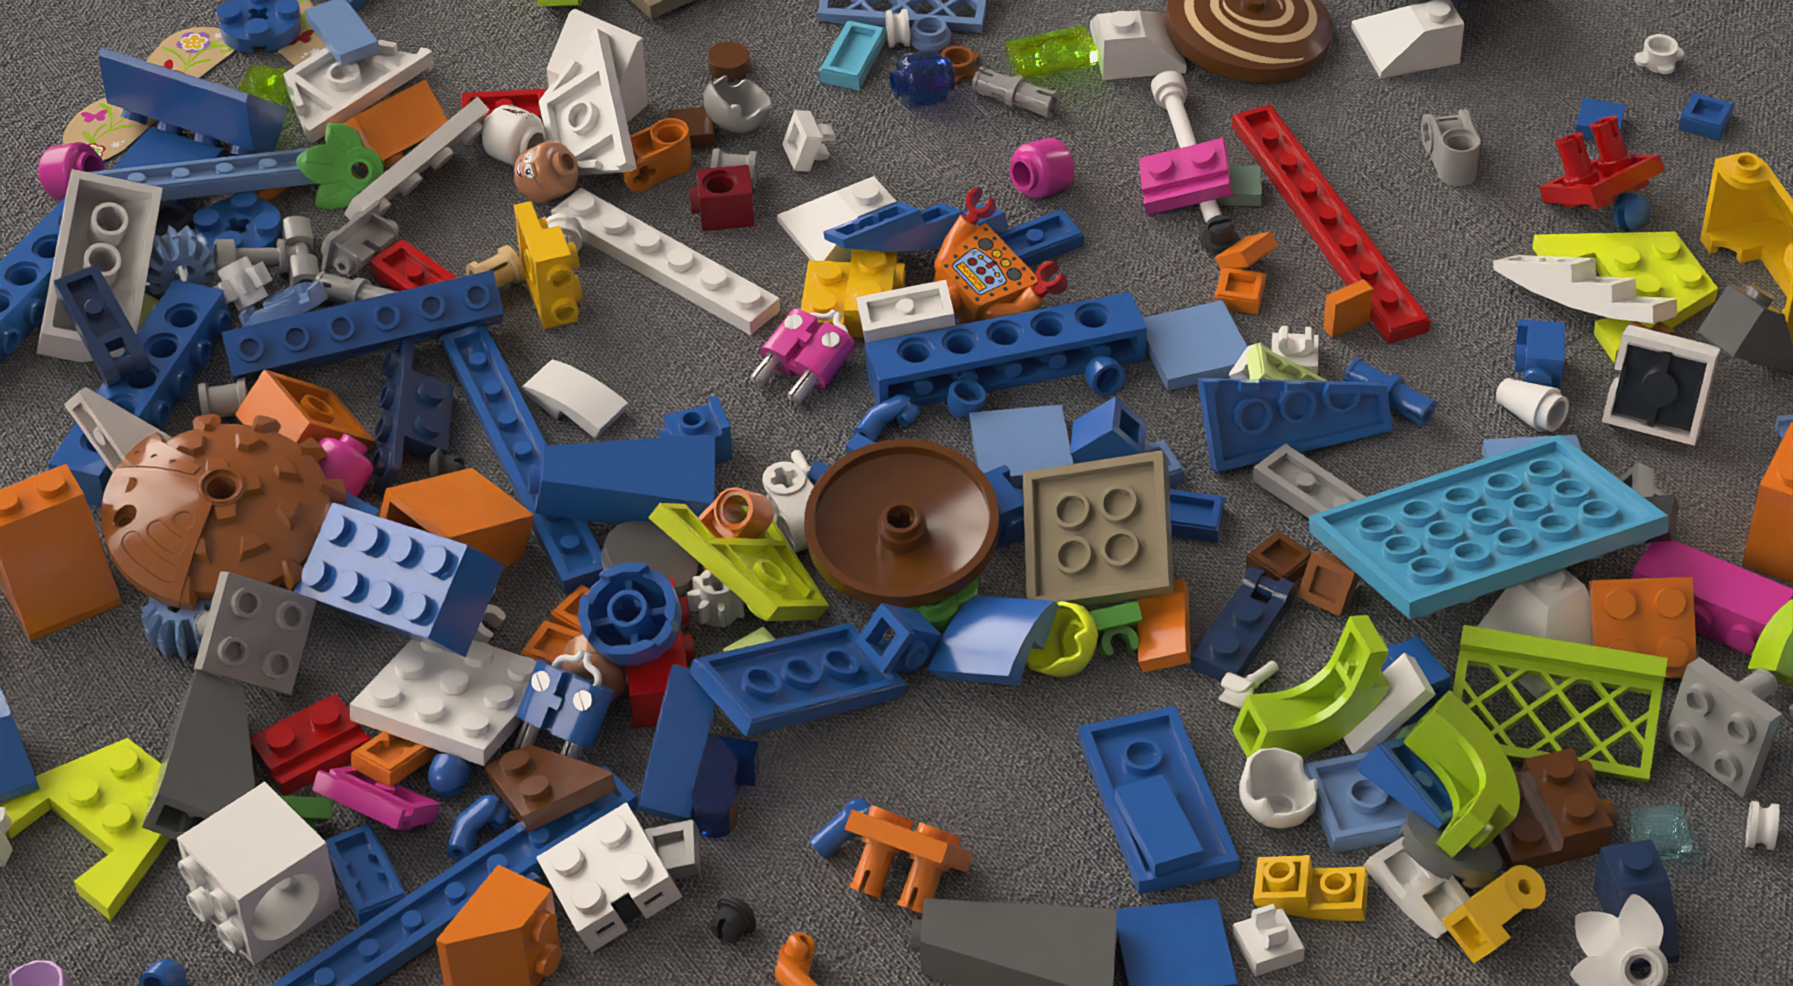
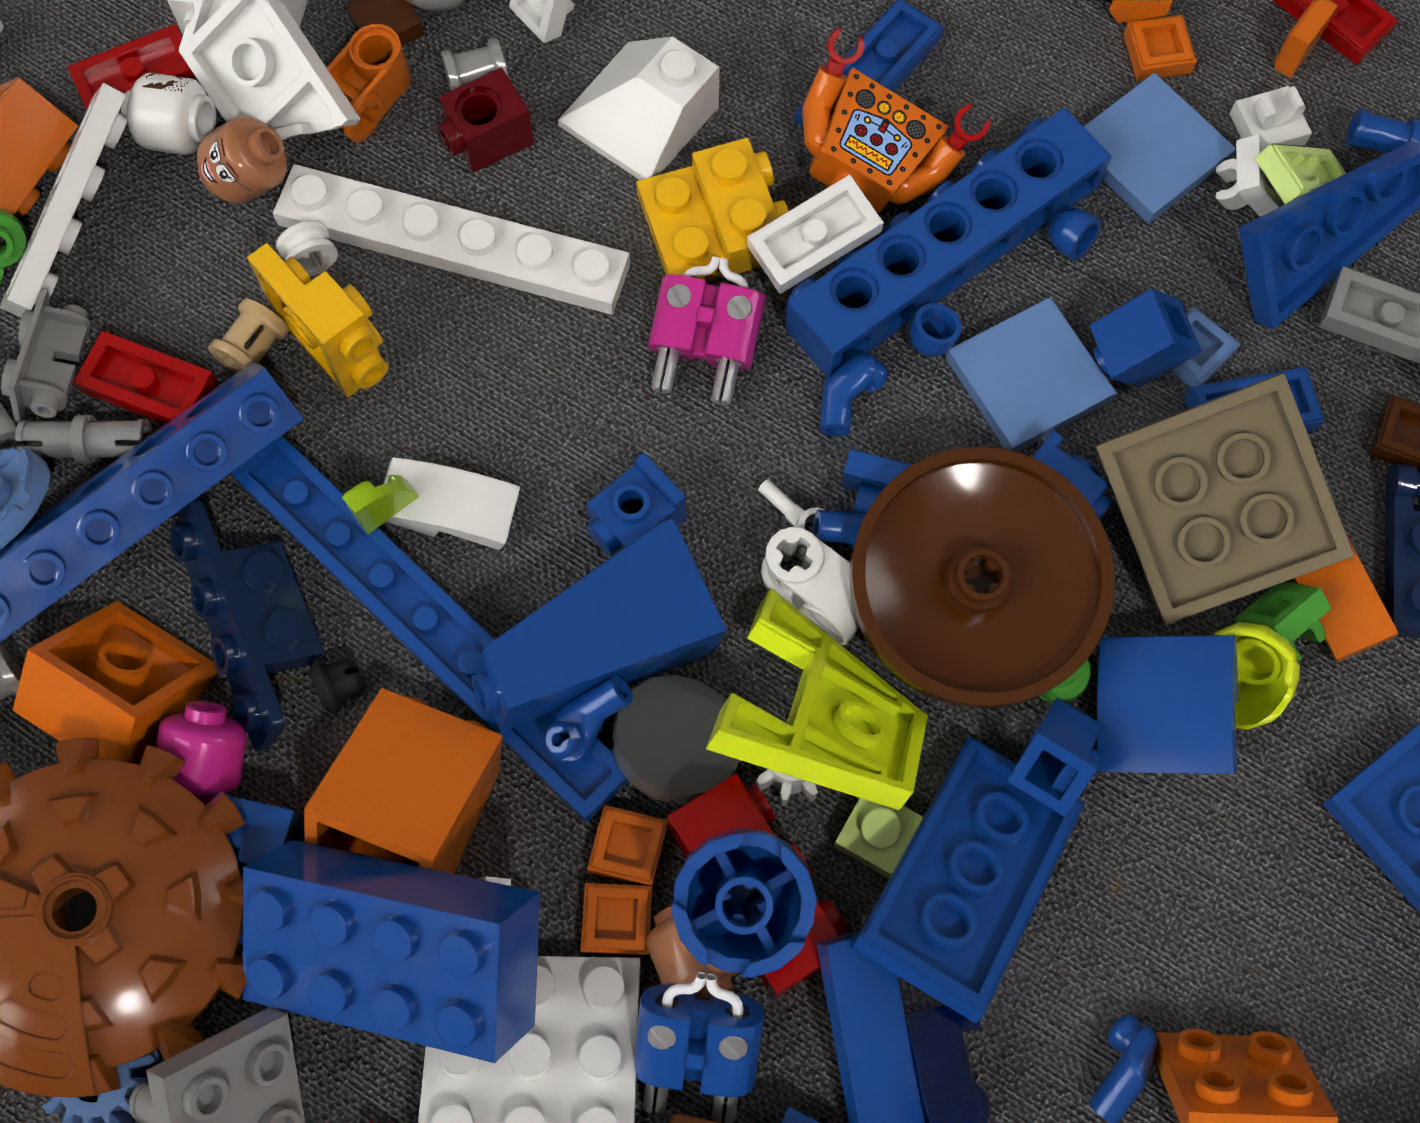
camera: 25 degrees left, 25 degrees up
(526, 370) = (376, 505): none -> lime tile
(581, 528) = (583, 717): none -> blue arm
(723, 514) = (759, 668): orange piece -> none
(904, 228) = (749, 100): blue slope -> none

